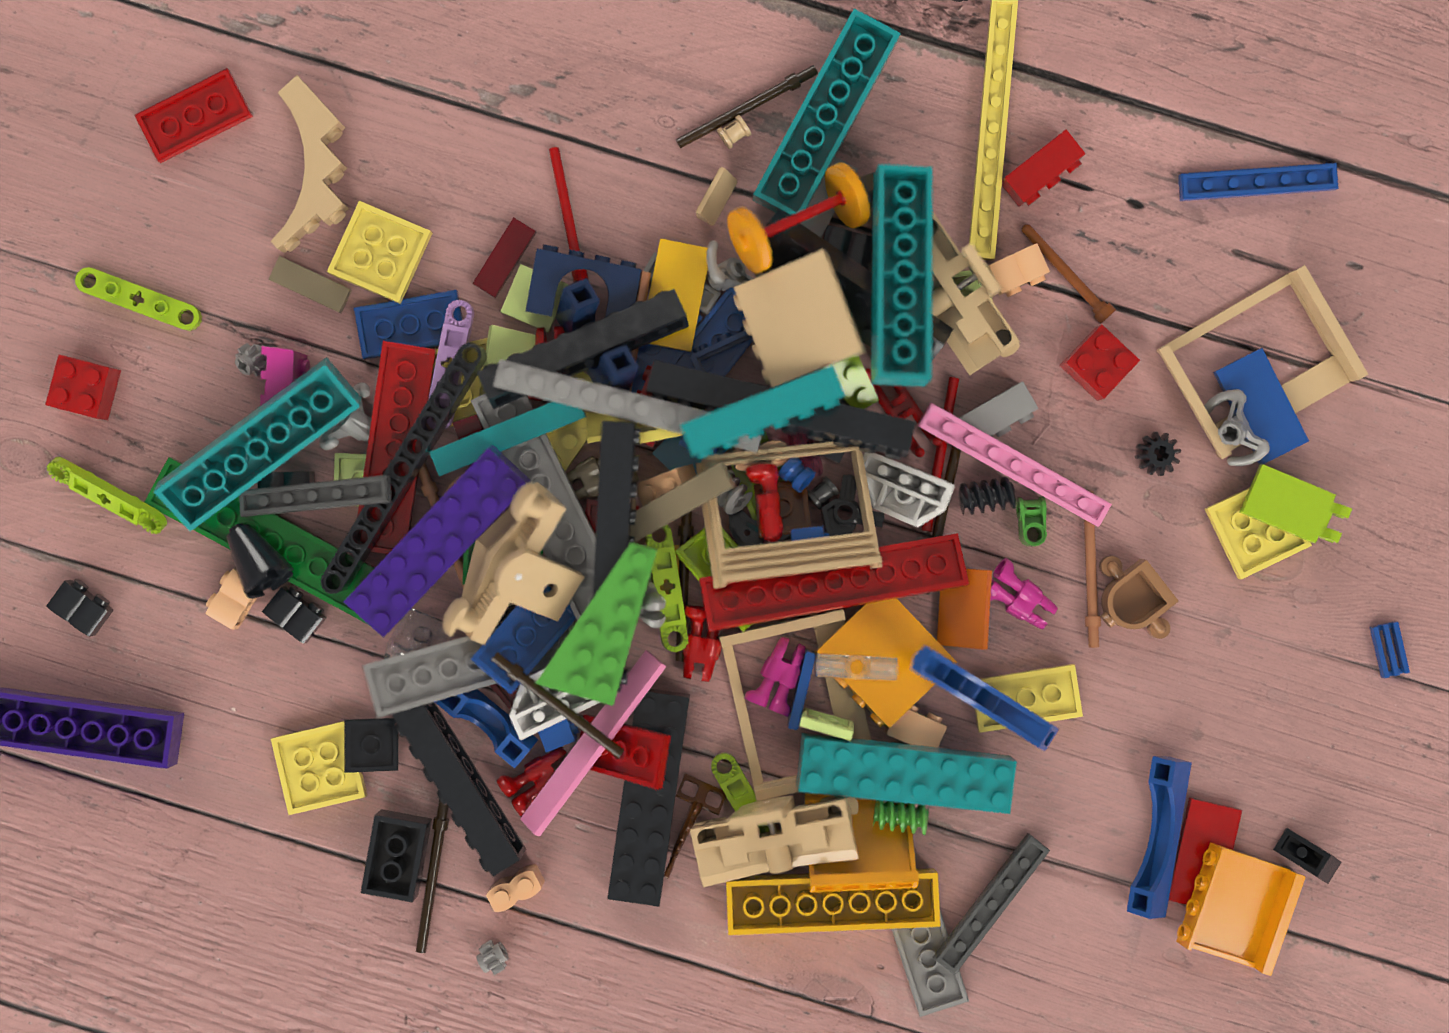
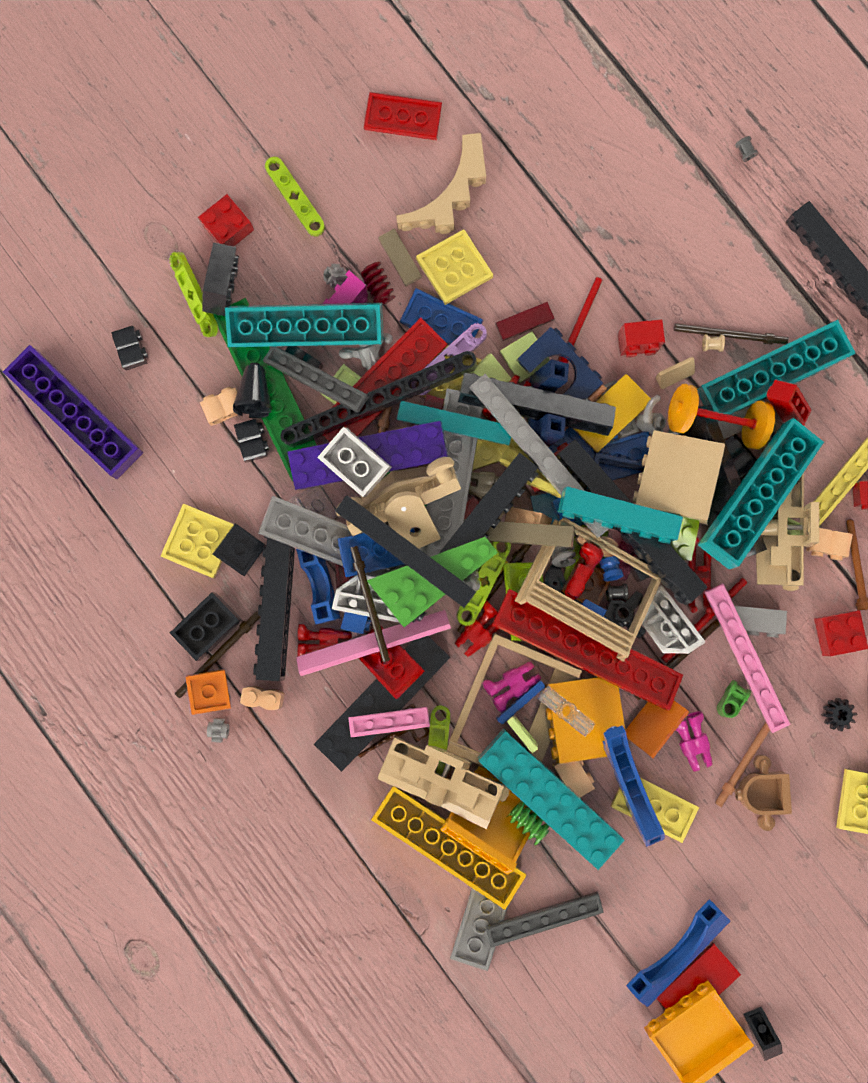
camera: 40 degrees right, 5 degrees down
(123, 459) = (220, 279): none -> black brick
(306, 336) = (376, 284): none -> dark red piece
(426, 563) = (354, 462): none -> white brick
(451, 924) = (208, 691): none -> orange plate
(553, 623) = (405, 551): none -> black tile
(648, 186) = (641, 338): none -> red brick
(672, 816) = (389, 722): none -> bright pink tile
(864, 145) = (788, 401): none -> red brick
(986, 495) = (717, 664): black piece -> none

